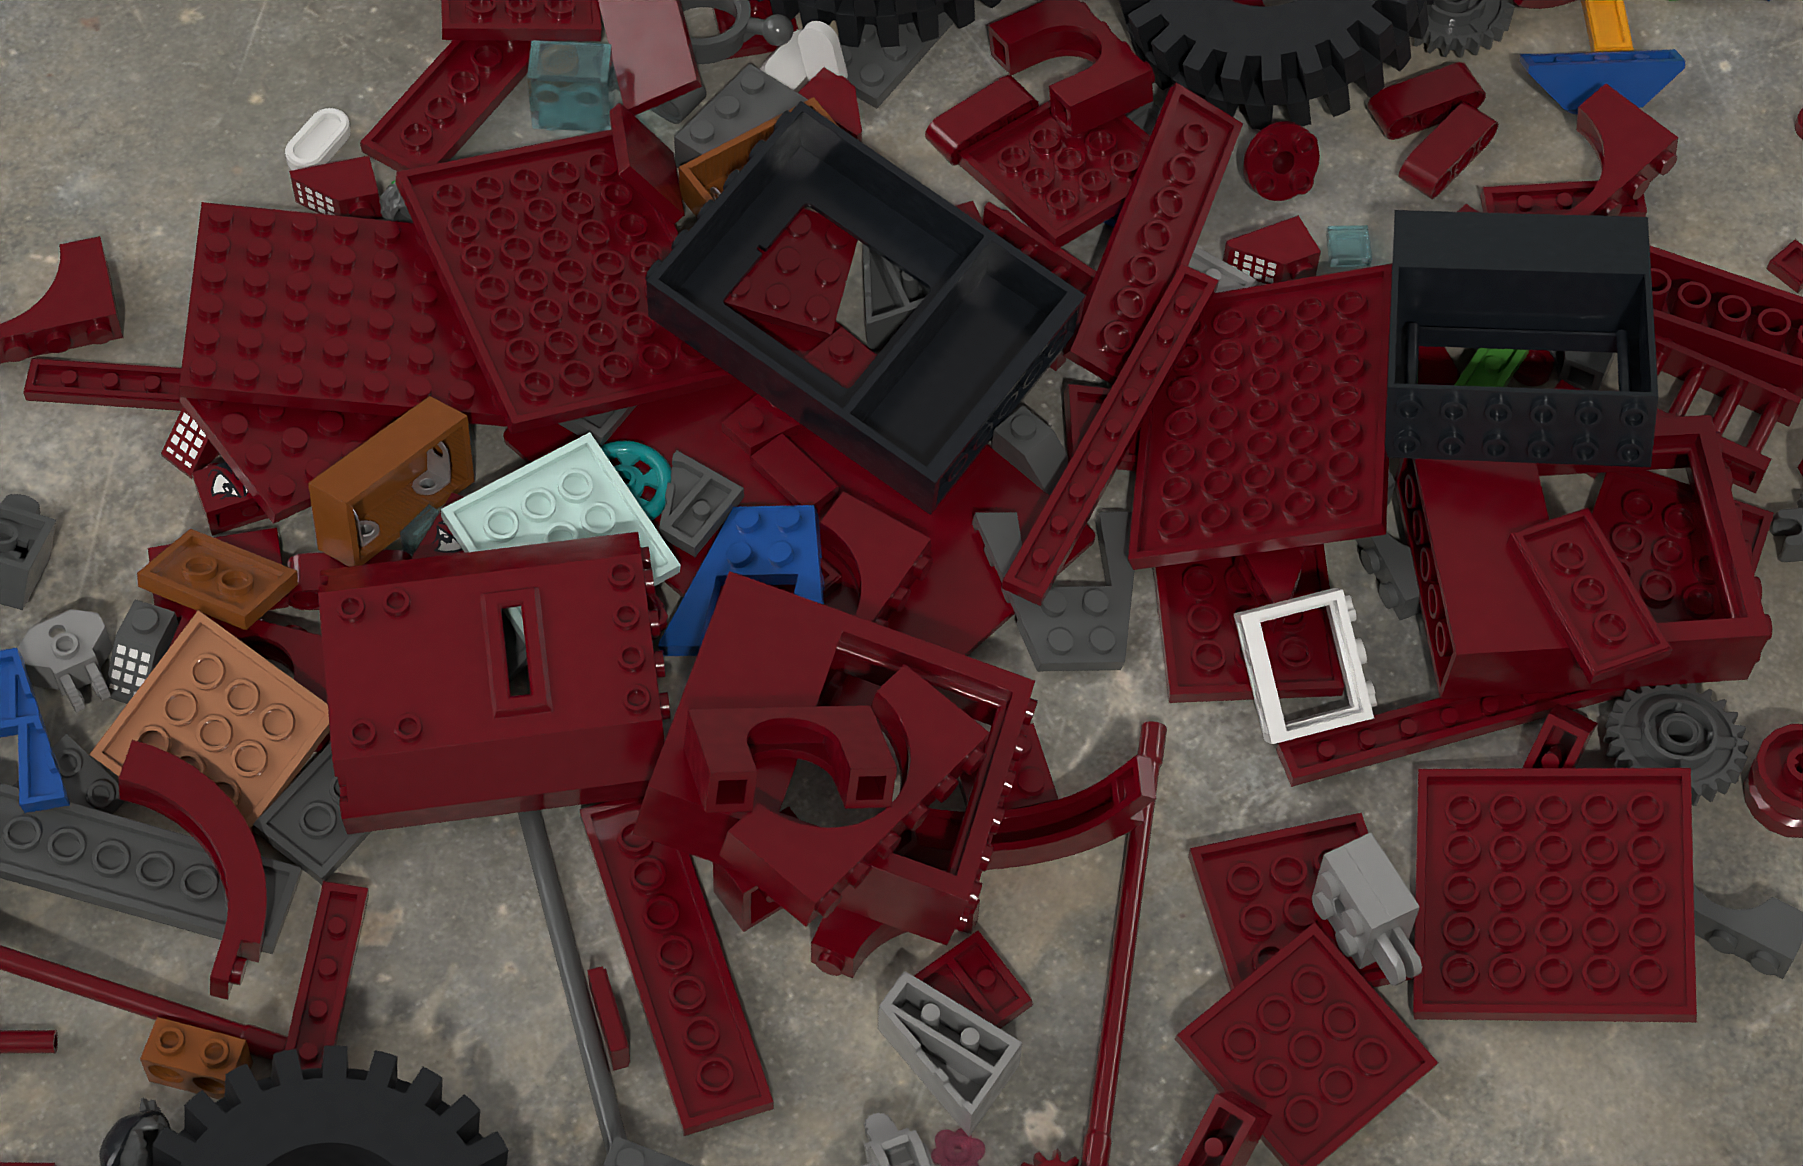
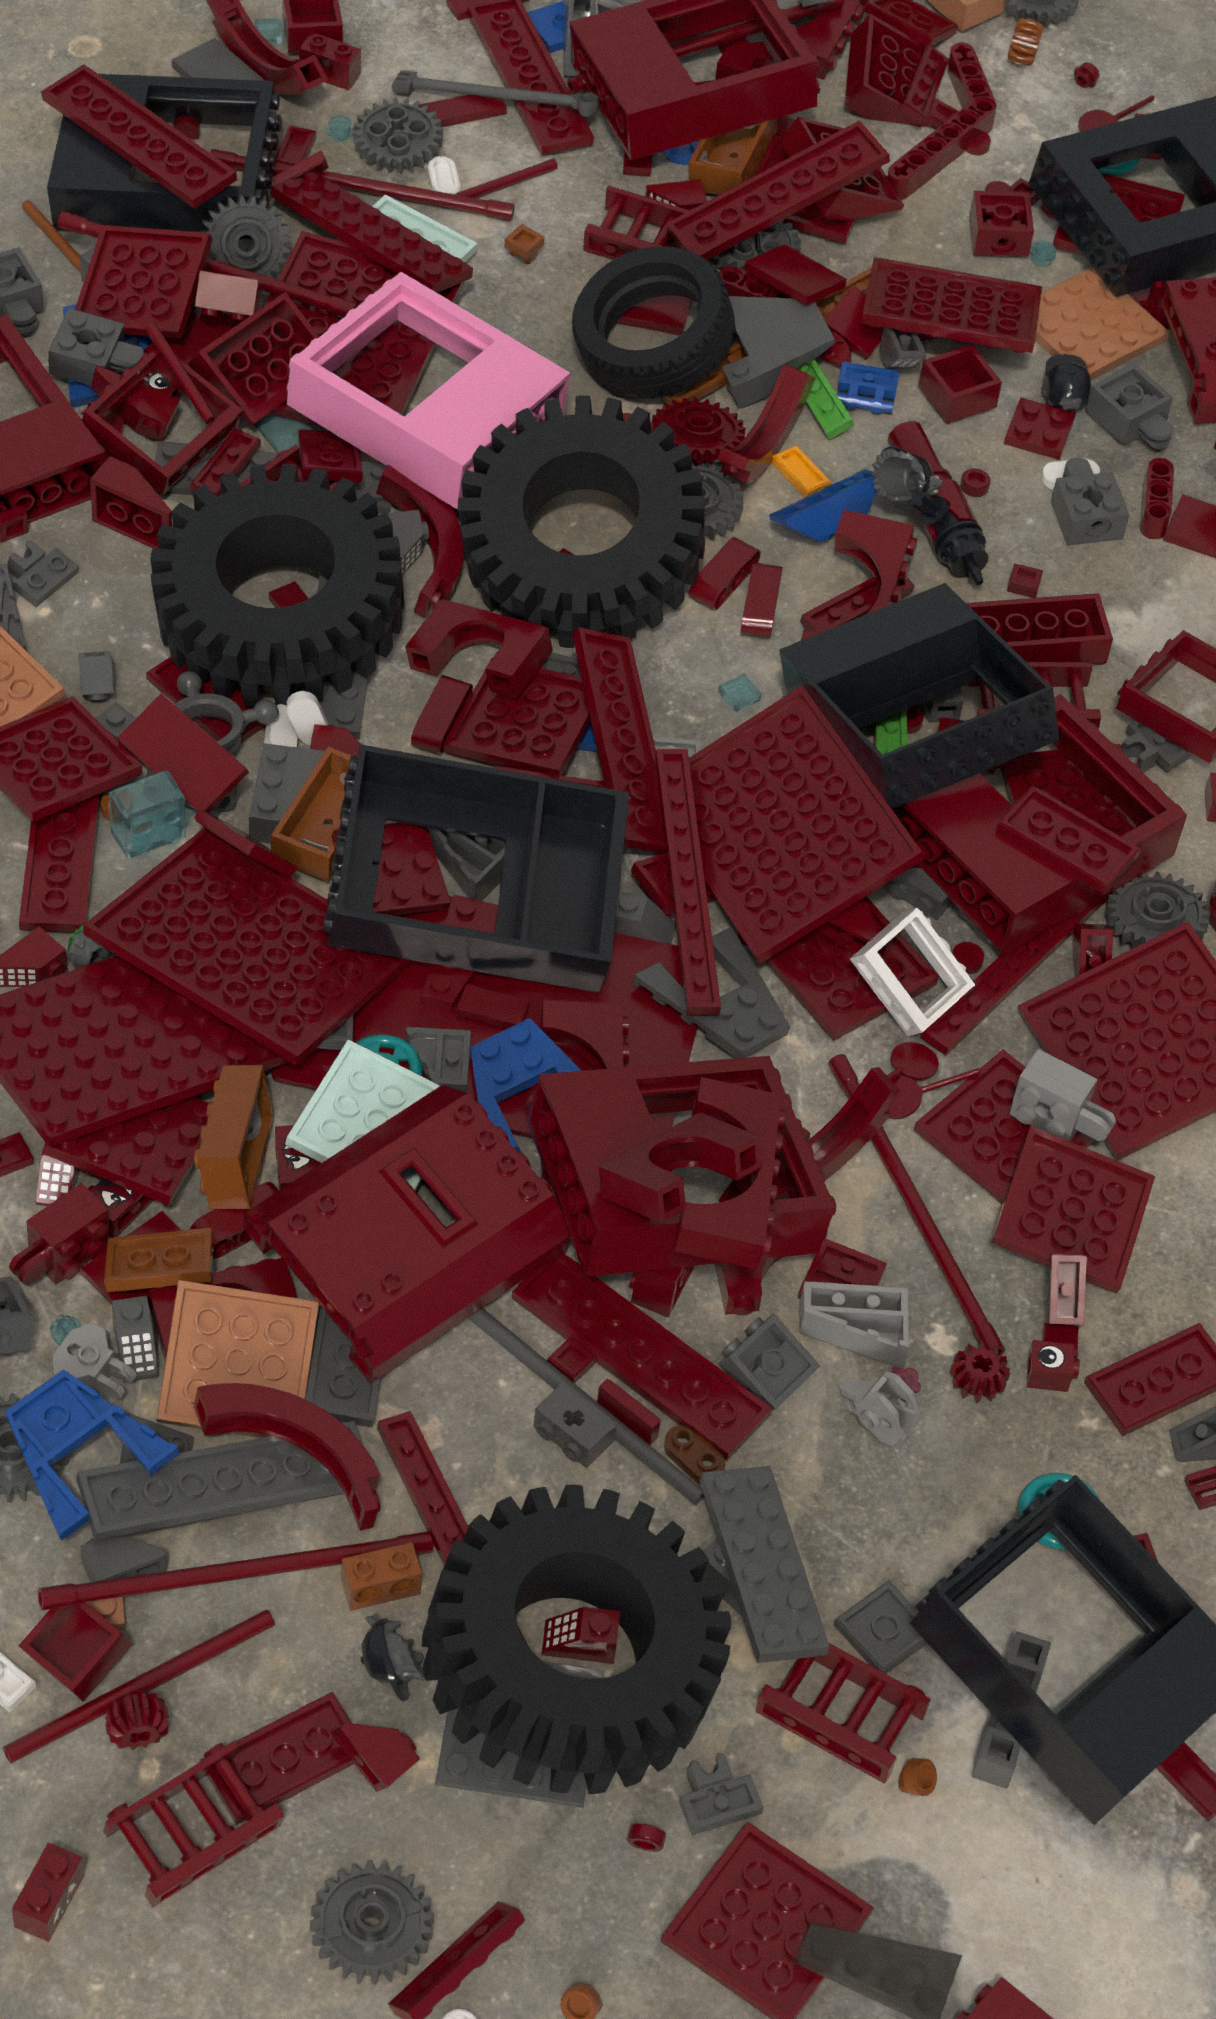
camera: 35 degrees left, 5 degrees down
(83, 601) = (62, 1326): none -> clear light blue plate
(139, 504) = (63, 1237): none -> dark red brick
(417, 529) = (268, 1163): clear light blue tile -> none
(529, 977) = (574, 1425): none -> dark grey brick
(593, 925) = (572, 1360): none -> dark red tile
(650, 1107) = (691, 1454): none -> reddish brown plate
(809, 1045) = (768, 1361): none -> dark grey plate
(1203, 806) = (910, 1092): none -> dark red piece
(1242, 772) = (913, 1061): none -> dark red piece
(1275, 252) = (701, 717): dark red slope -> none
(1281, 161) = (663, 653): dark red plate -> none
(1401, 682) = (970, 956): none -> dark red tile
(1708, 74) = (902, 473): none -> dark grey hair
(1743, 128) = (947, 514): none -> piece

